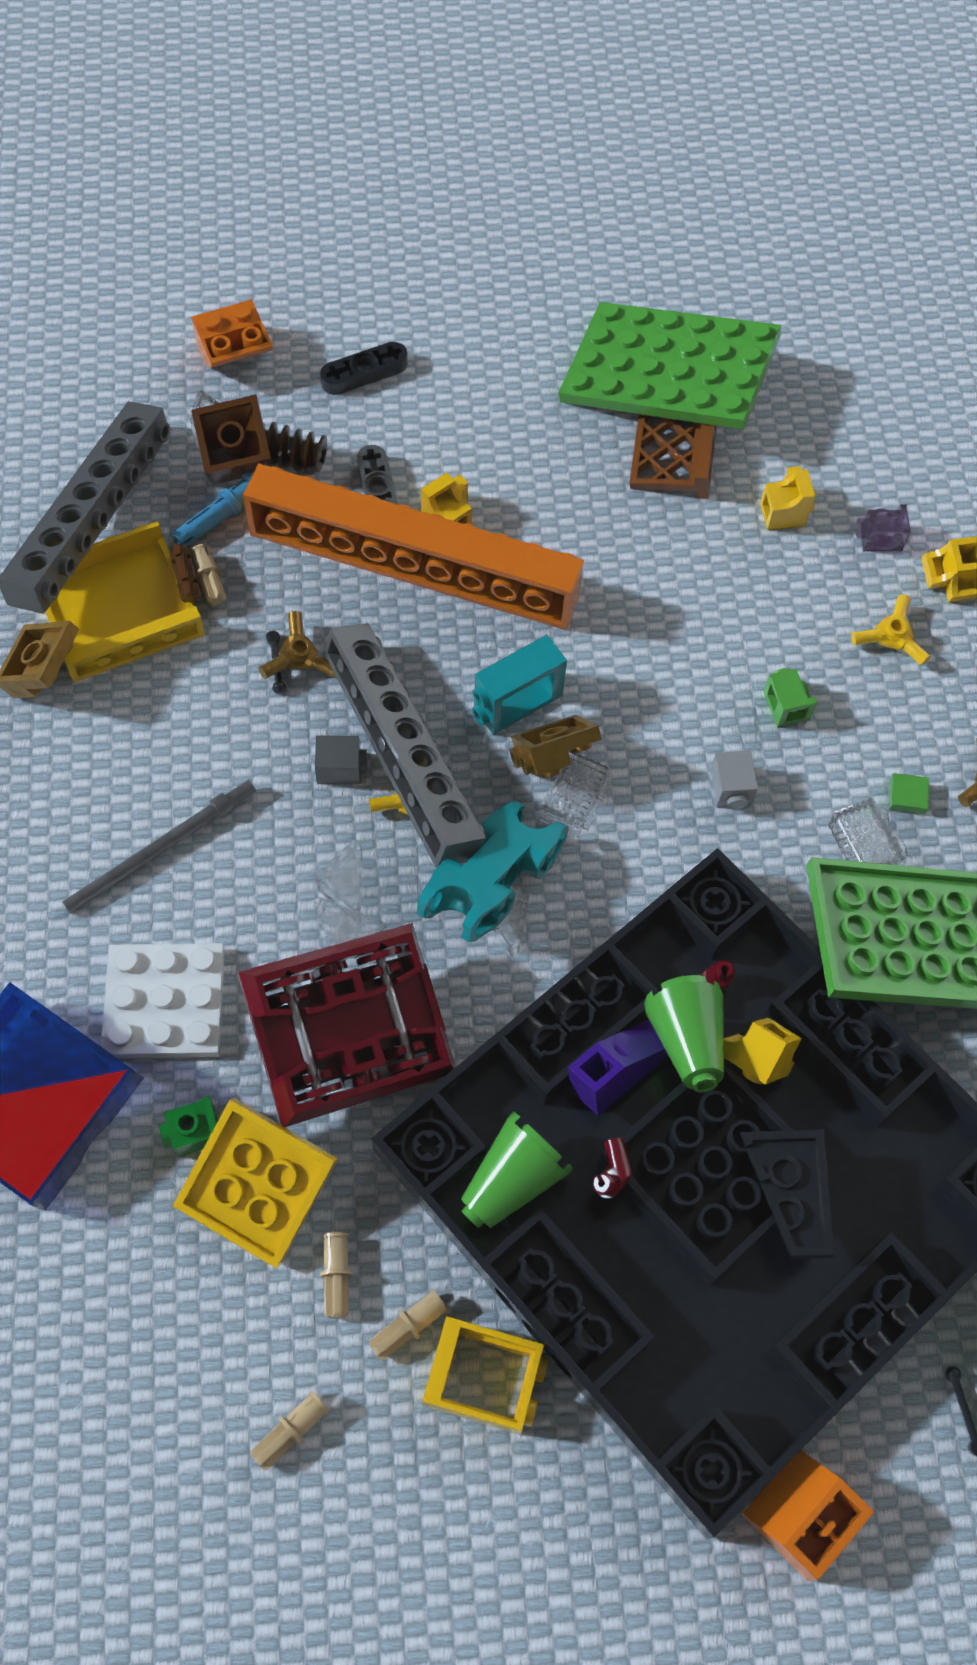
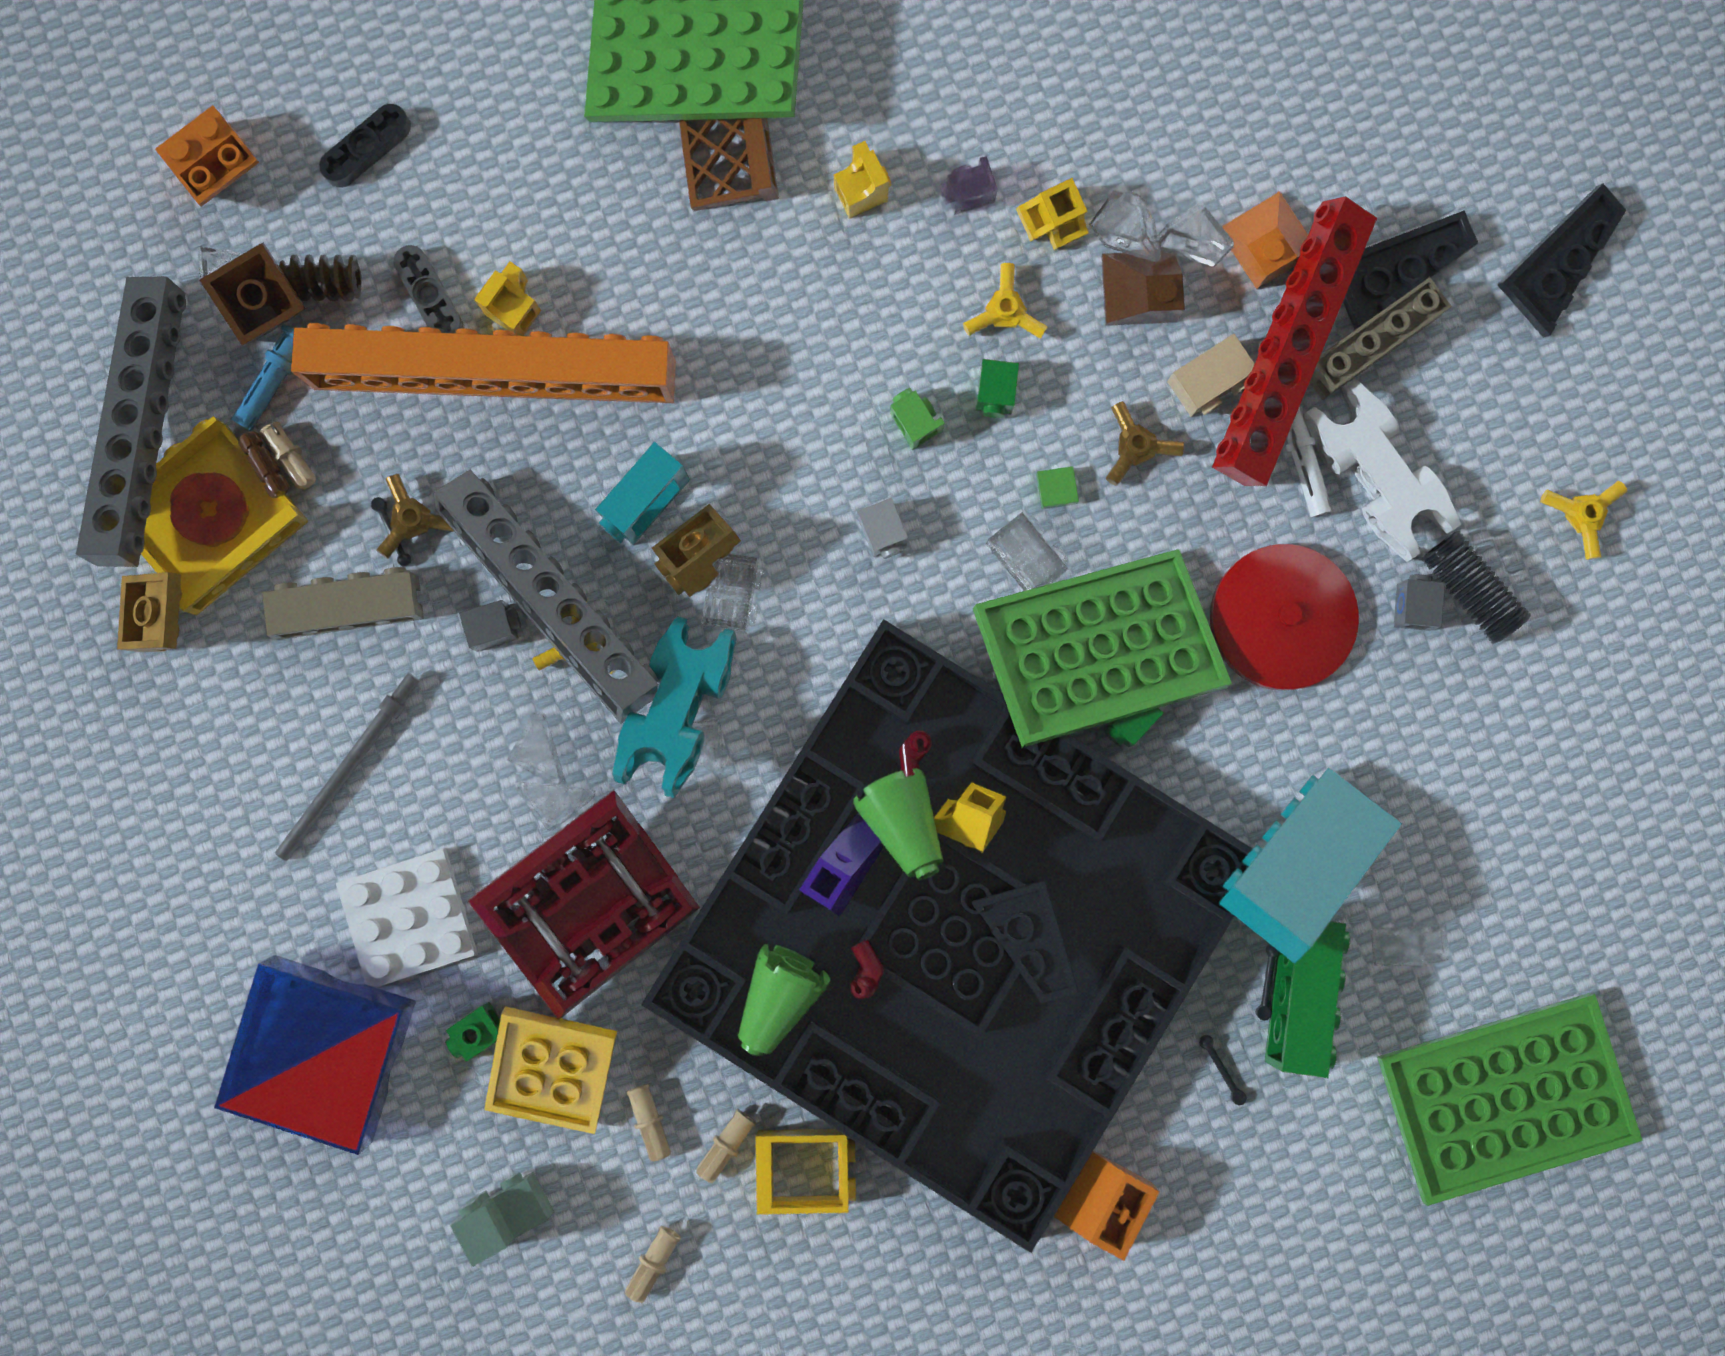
camera: 15 degrees left, 20 degrees up
(122, 612) = (207, 487): none -> clear red plate
(150, 1324) = (494, 1221): none -> sand green brick
(210, 705) = (342, 604): none -> dark tan brick
(871, 691) = (997, 388): none -> green brick
(939, 1023) = (1132, 728): none -> green brick

